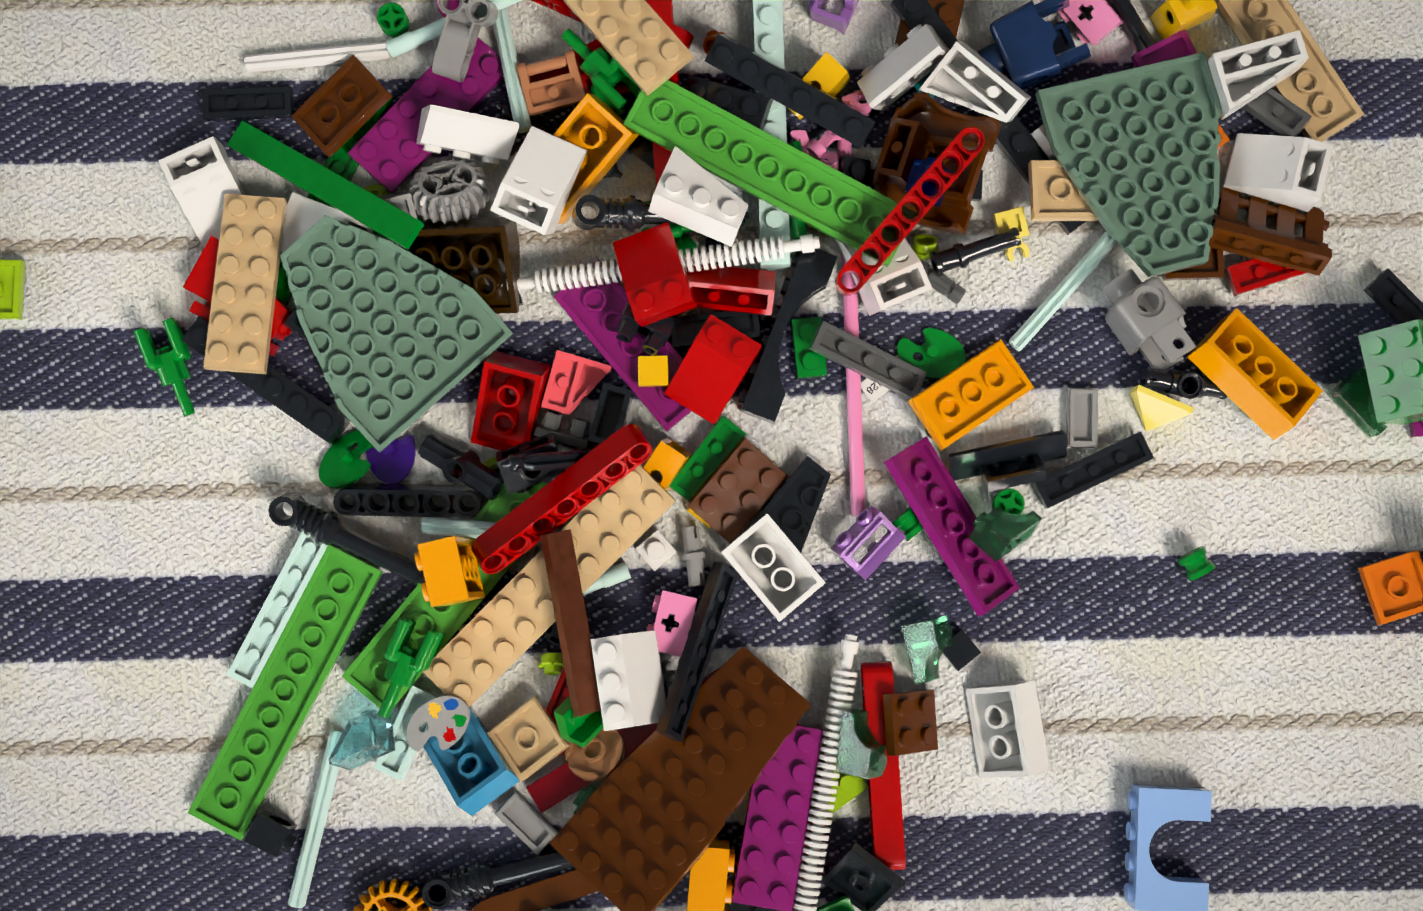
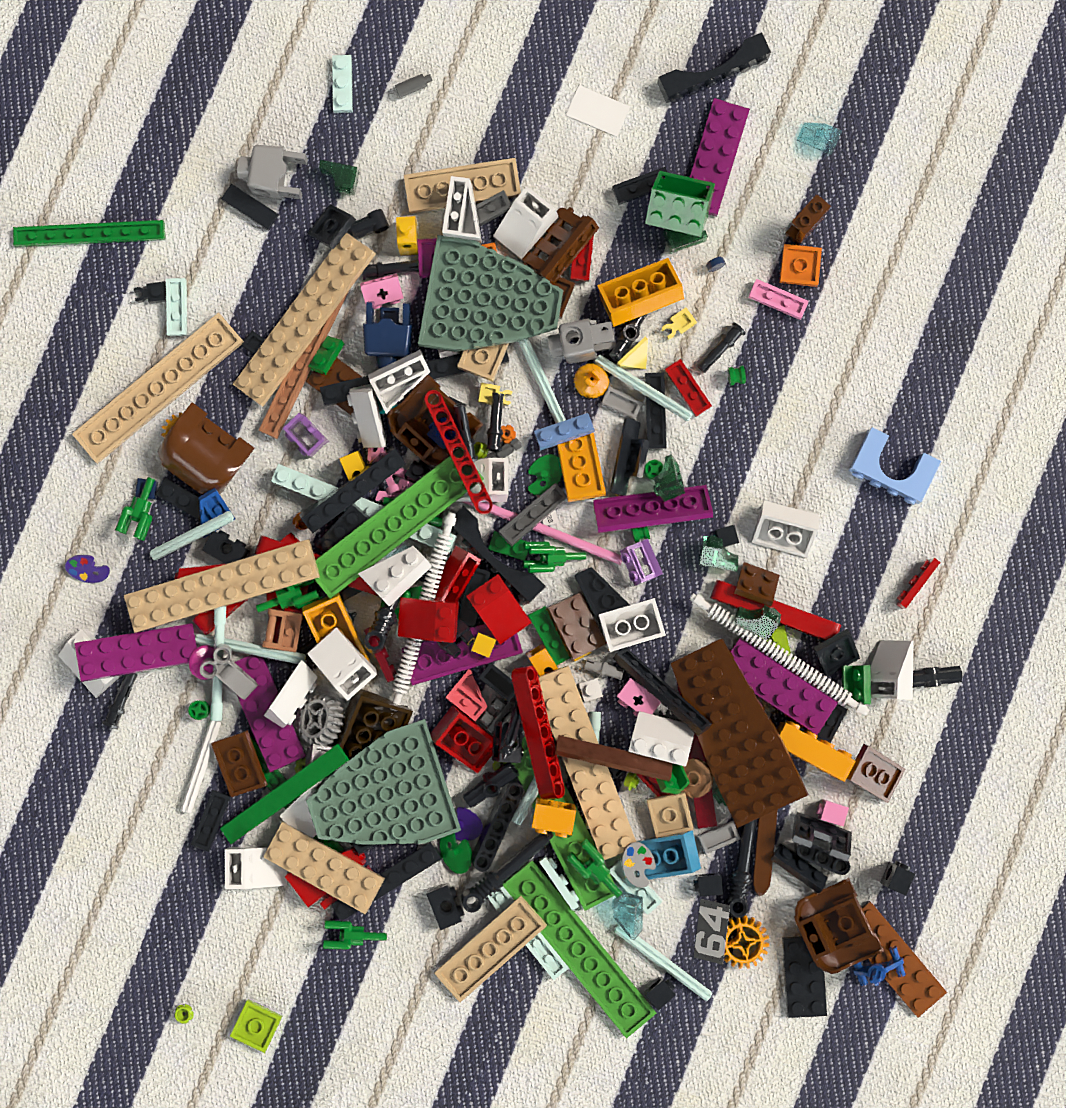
camera: 60 degrees left, 0 degrees up
(232, 566) = (490, 948): none -> tan plate
(249, 481) = (445, 918): none -> black brick
(367, 623) = (560, 882): none -> light aqua plate
(388, 870) = (711, 931): none -> sticker
(453, 836) = (708, 884): none -> black brick
(574, 237) = (388, 670): none -> dark red plate
(817, 409) = (549, 557): none -> green plant
(943, 209) = (463, 428): none -> black pin
(966, 282) = (511, 433): none -> orange plate
(1005, 353) = (564, 431): none -> medium blue plate
(1085, 367) = (591, 388): none -> light orange hair
(1118, 438) = (643, 388): none -> light aqua axle
(1146, 502) = (688, 388): none -> red plate
(1236, 451) = (680, 322): none -> light yellow plate
(1238, 528) = (727, 341): none -> black pin
(1333, 576) = (778, 299): none -> bright pink plate
(1343, 464) = (715, 264): none -> dark blue tile

